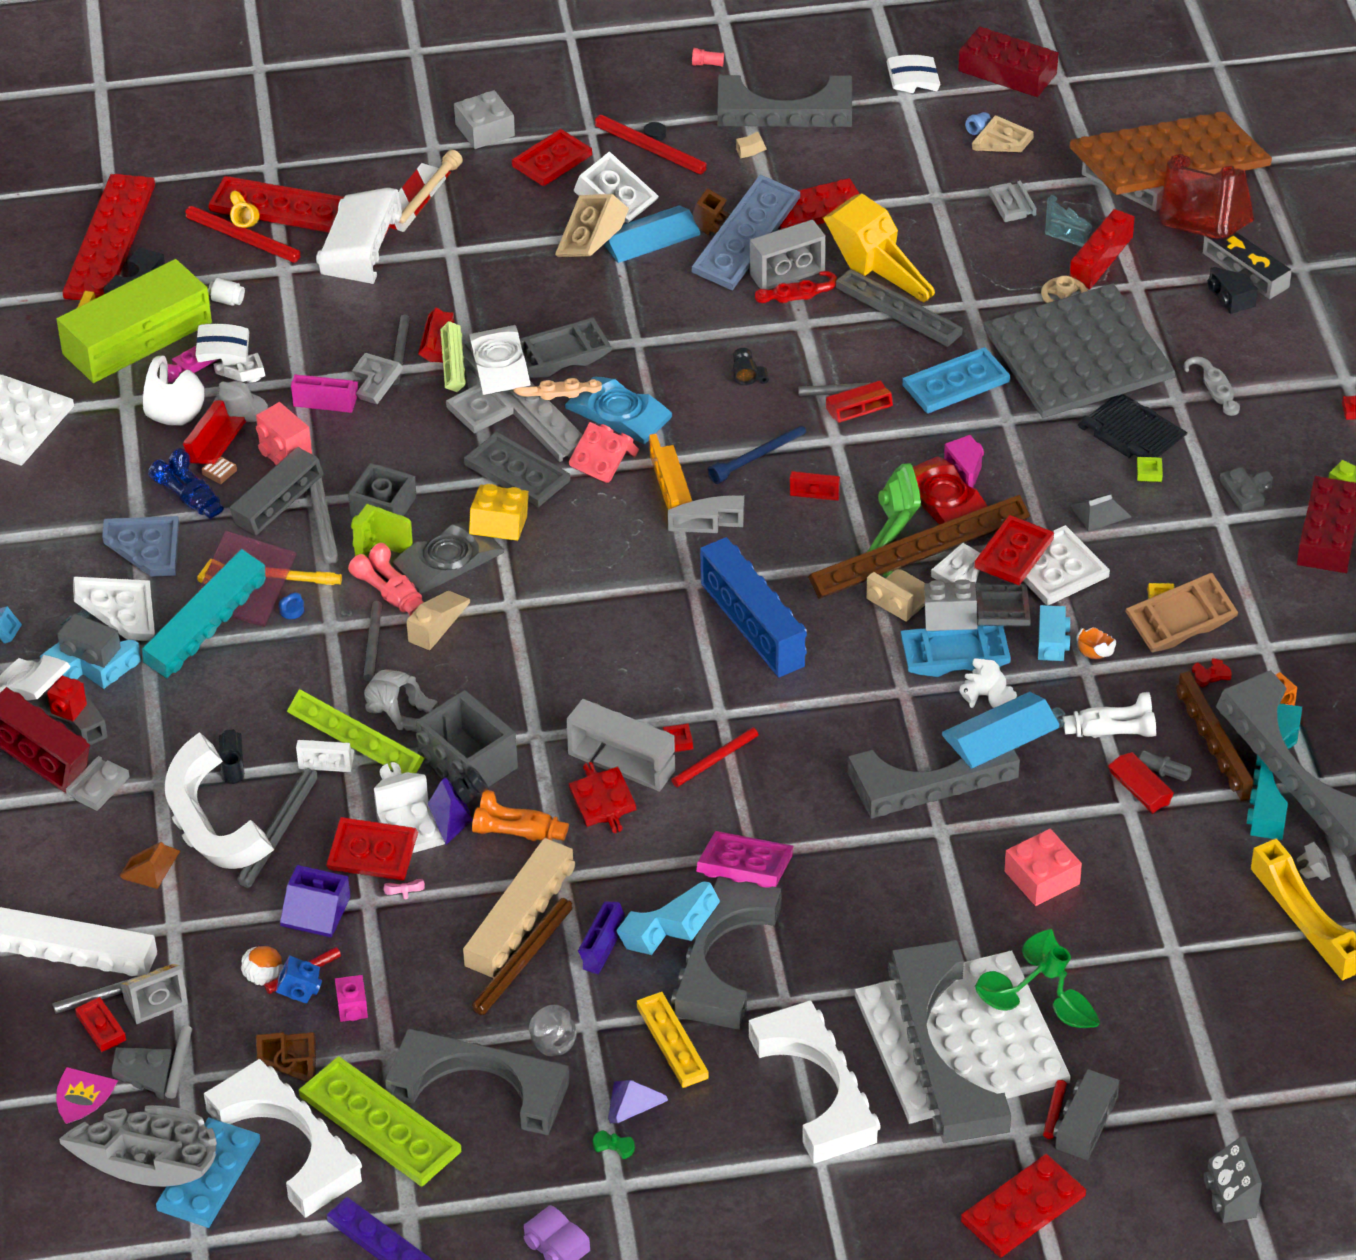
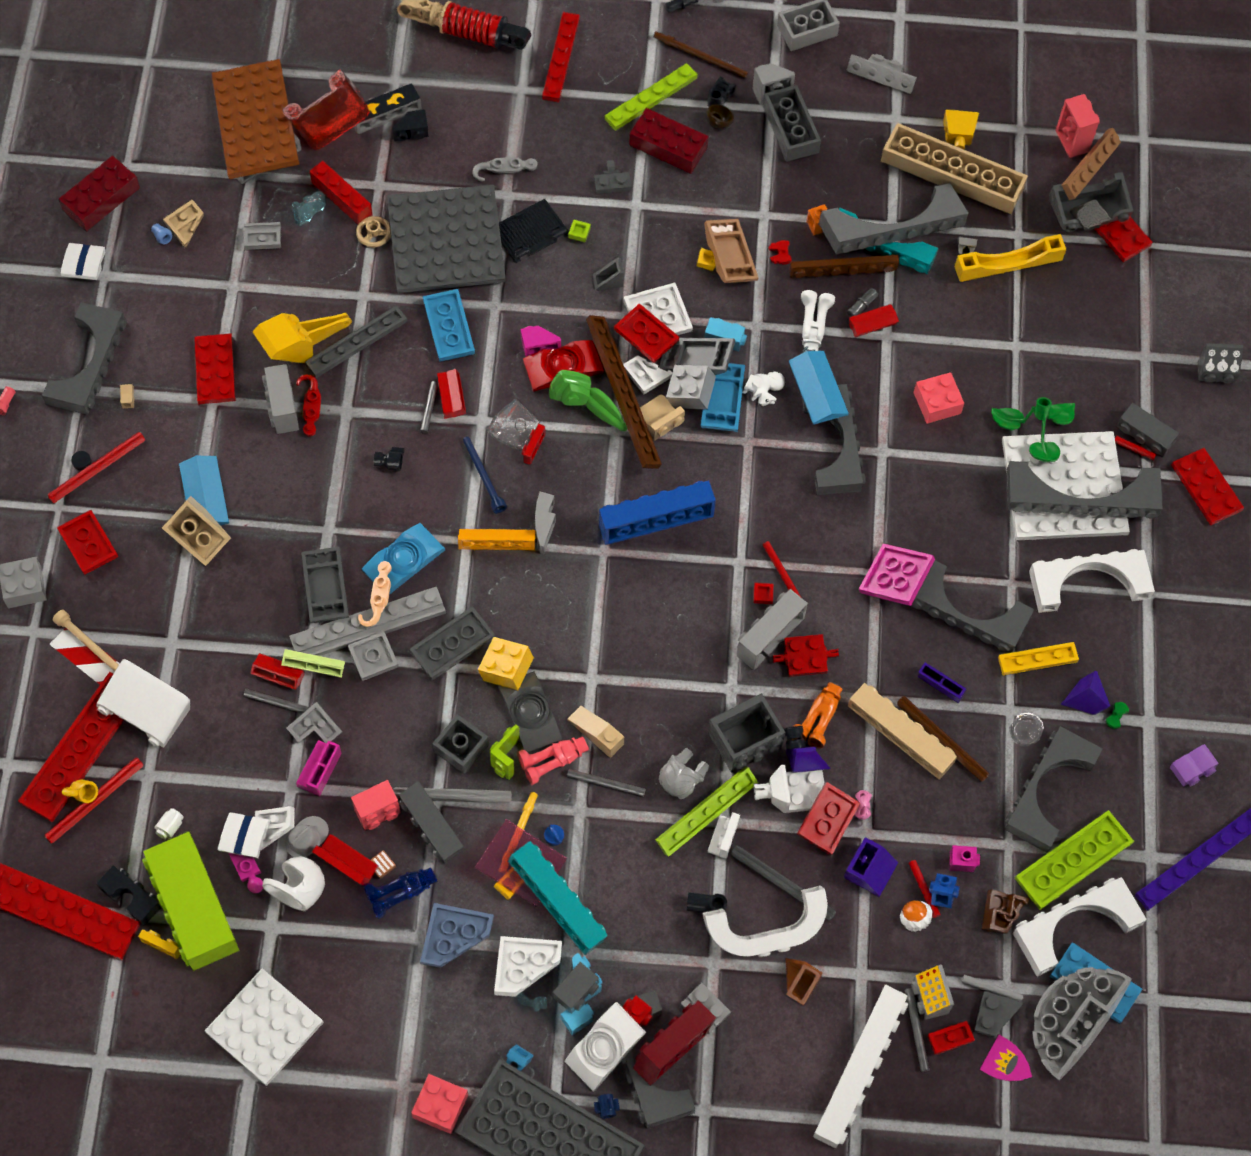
camera: 80 degrees left, 20 degrees up
(499, 359) = (333, 627): white slope -> none
(601, 452) = (453, 579): coral bracket -> none
(614, 178) = (150, 504): white slope -> none
(678, 919) = (949, 625): medium azure arch -> none
(709, 212) = (214, 437): reddish brown brick -> none
(756, 215) = (240, 421): sand blue plate -> none
(835, 458) = (513, 425): none -> clear slope
(1095, 643) = (742, 310): orange hair -> none

